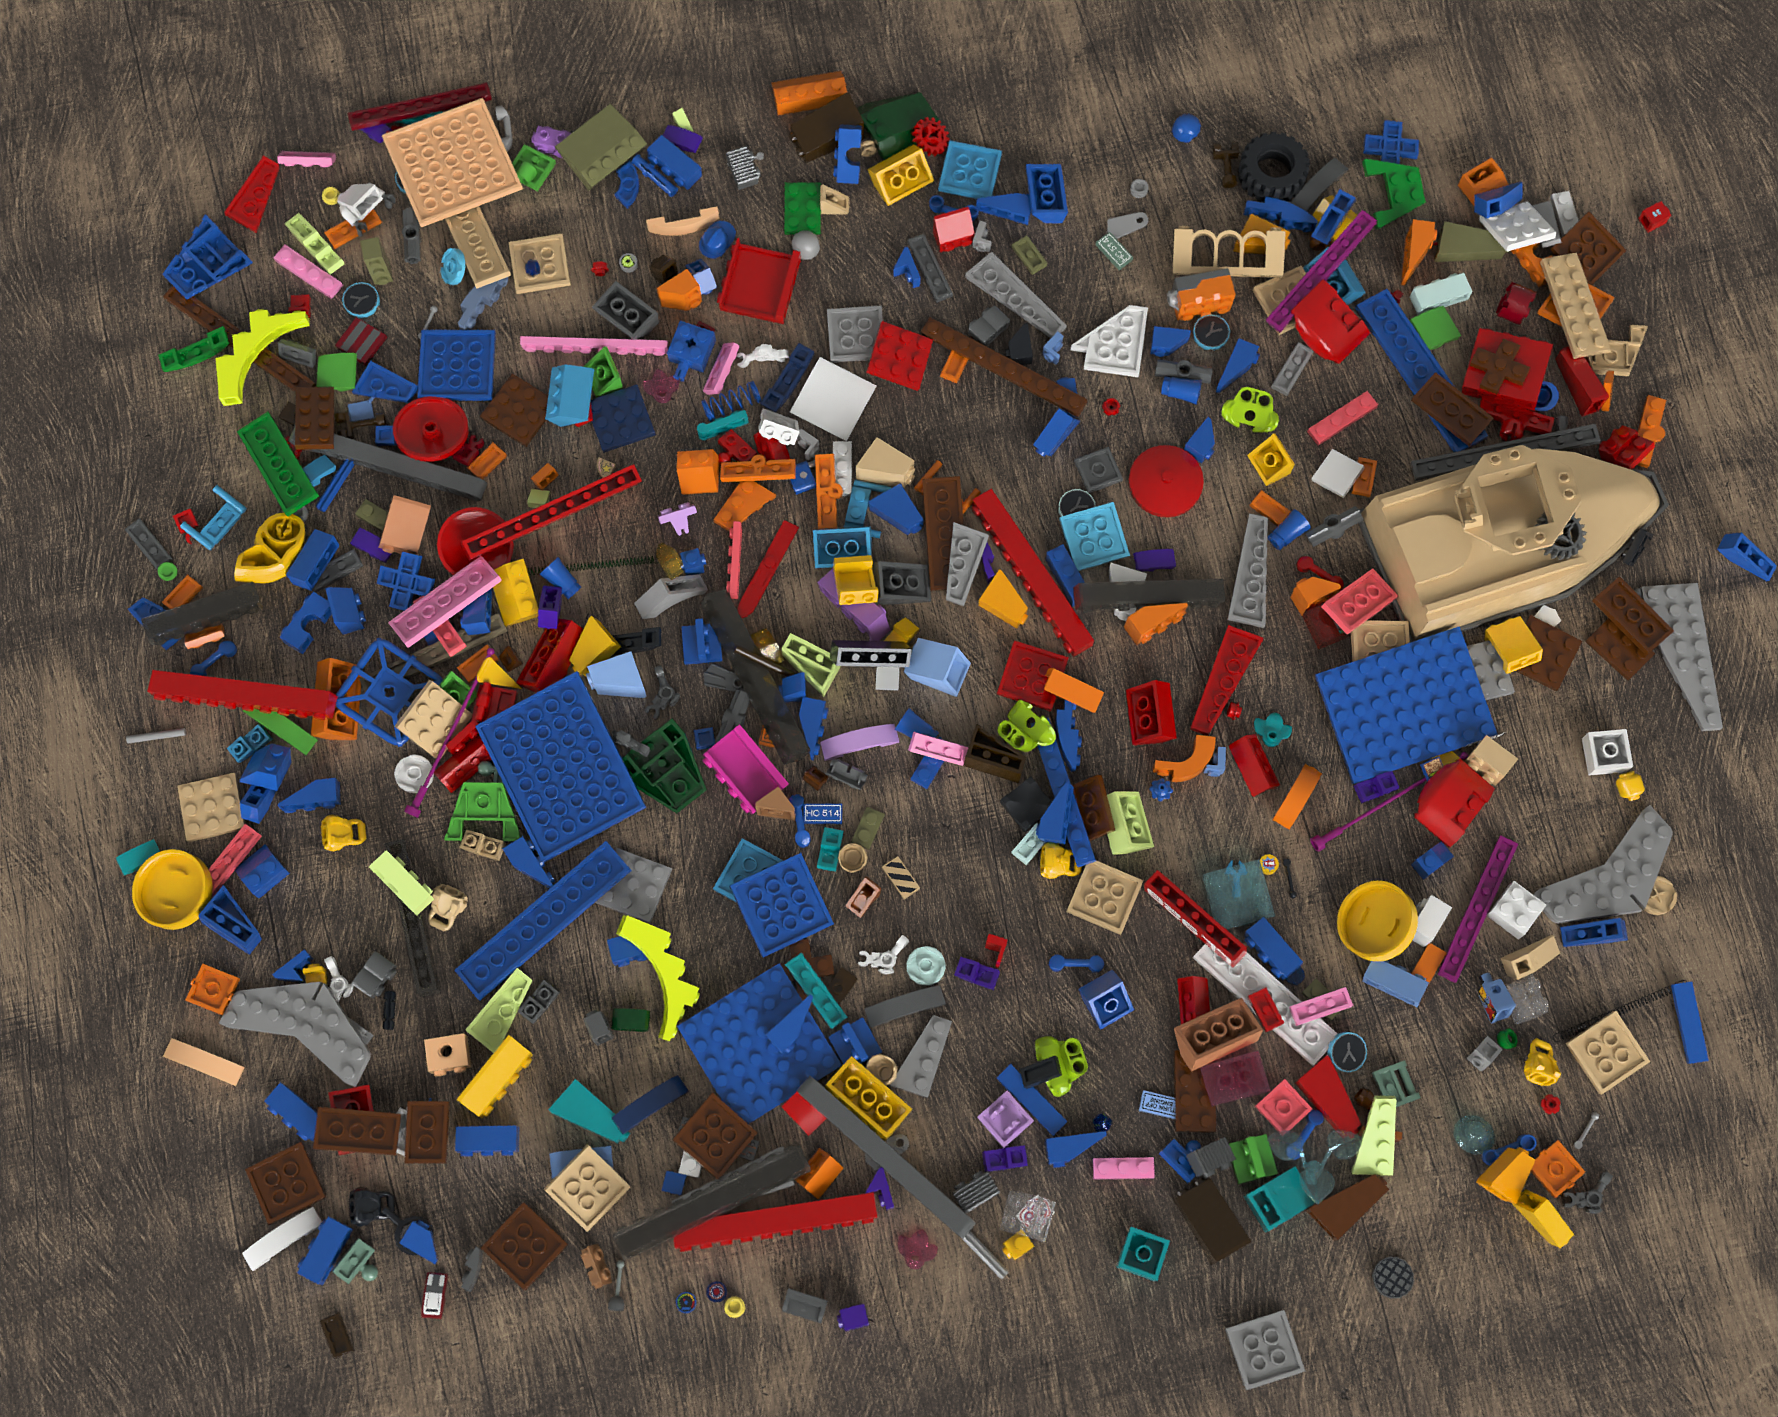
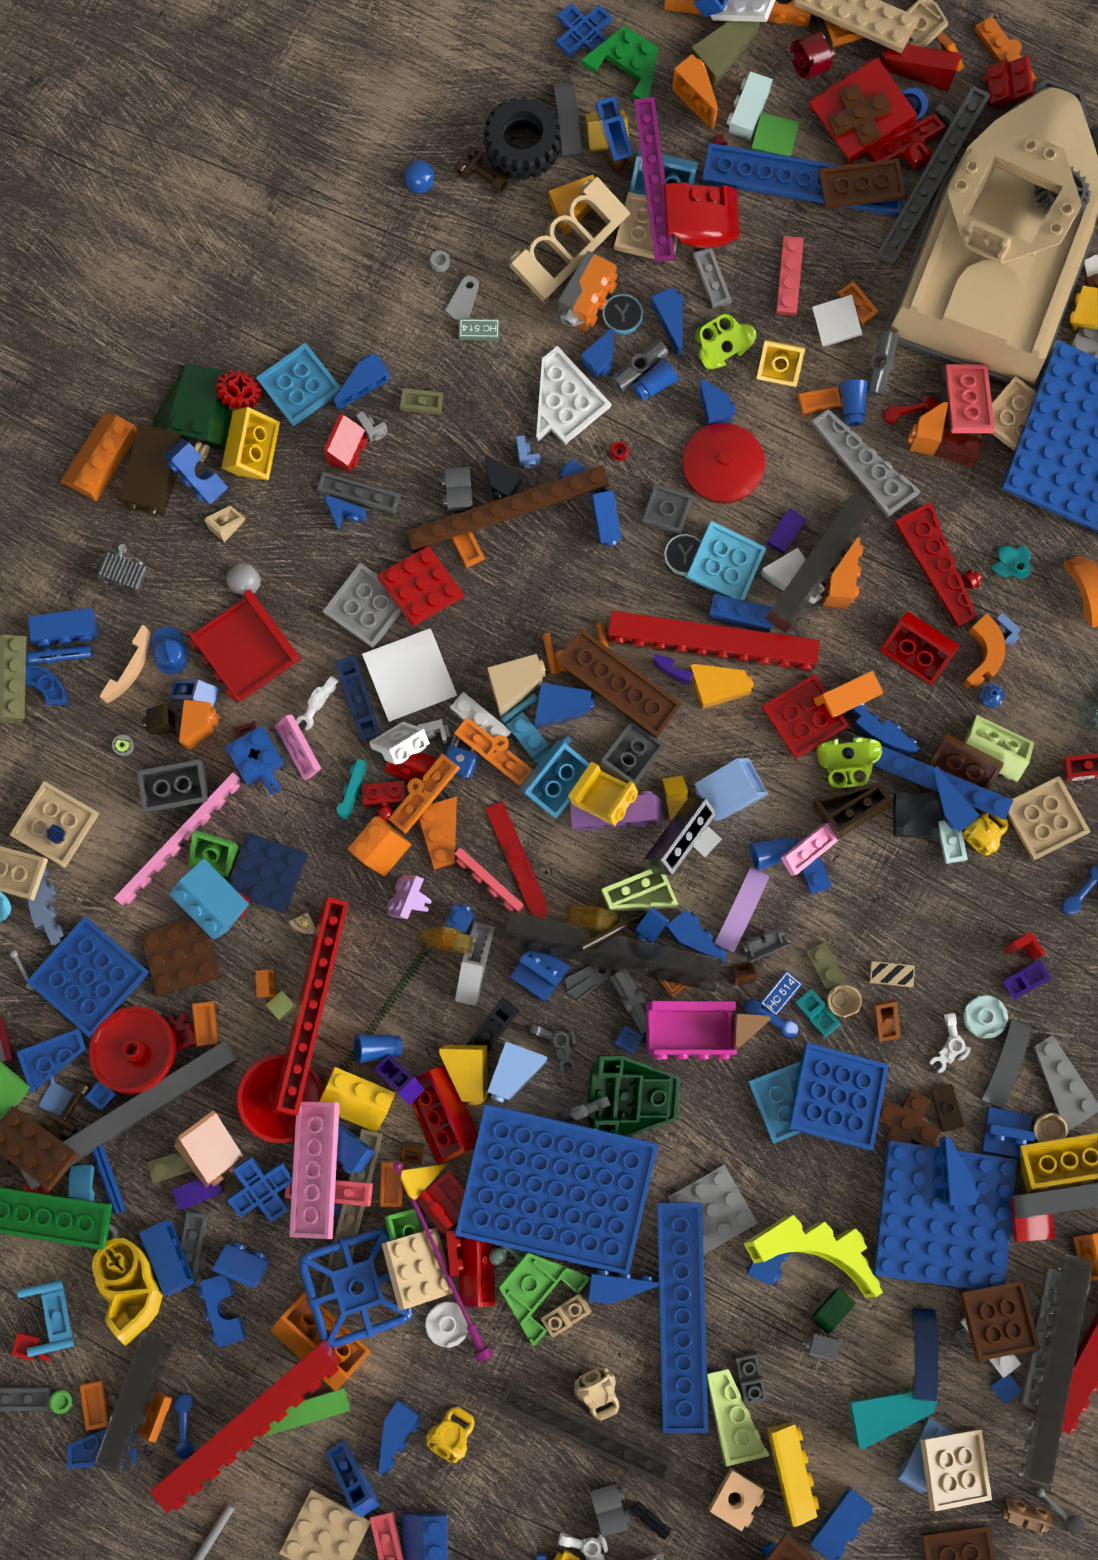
camera: 50 degrees left, 5 degrees up
(248, 744) = (293, 1454): dark azure slope -> none
(267, 767) = (333, 1456): blue slope -> none
(402, 882) = (555, 1418): yellowish green wedge -> none
(599, 268) = (107, 775): red plate -> none
(661, 384) = (265, 810): clear pink plate -> none
(681, 120) = (29, 588): yellowish green piece -> none
(682, 138) = (45, 601): dark purple slope -> none
(710, 416) = (333, 792): blue piece -> none
(802, 207) = (205, 553): green plate -> none
(812, 984) = (933, 1128): teal tile -> none
(937, 205) = (307, 438): blue bar -> none
(965, 557) = (658, 686): light grey wing -> none
(1008, 289) = (435, 445): light grey wing -> none
(1047, 192) = (381, 337): blue slope -> none
(1253, 764) = (1031, 603): red panel -> none
(1288, 214) = (573, 163): blue slope -> none

